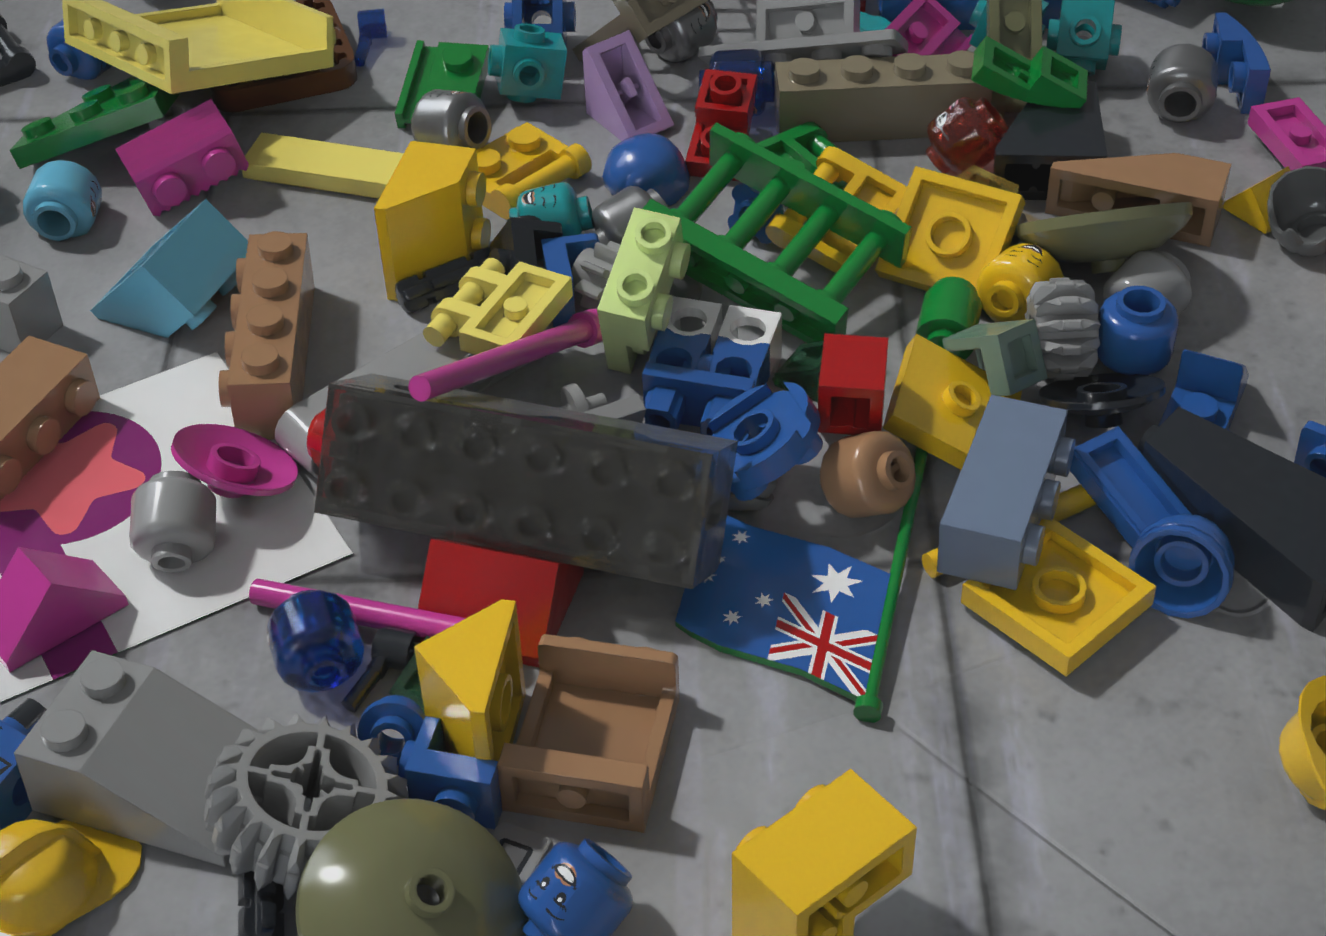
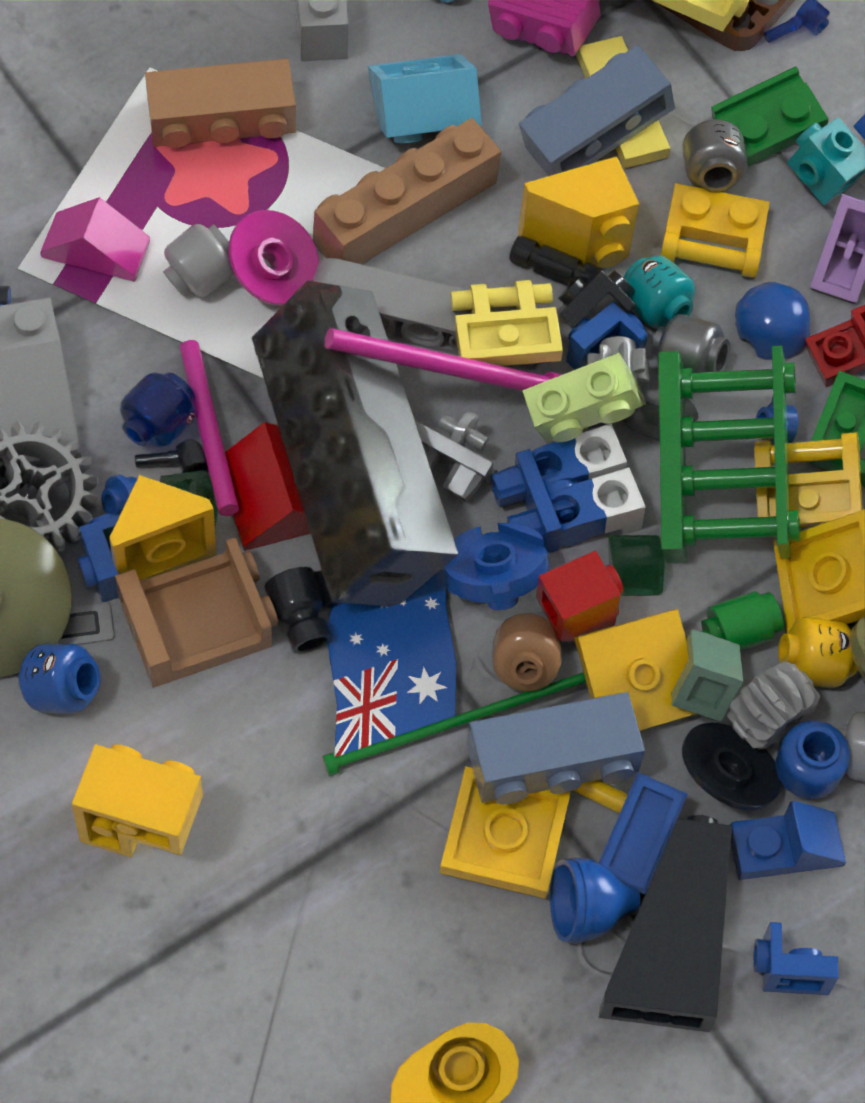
camera: 50 degrees right, 20 degrees up
(331, 169) = (598, 113): none -> sand blue brick
(654, 623) = (297, 600): none -> black piece

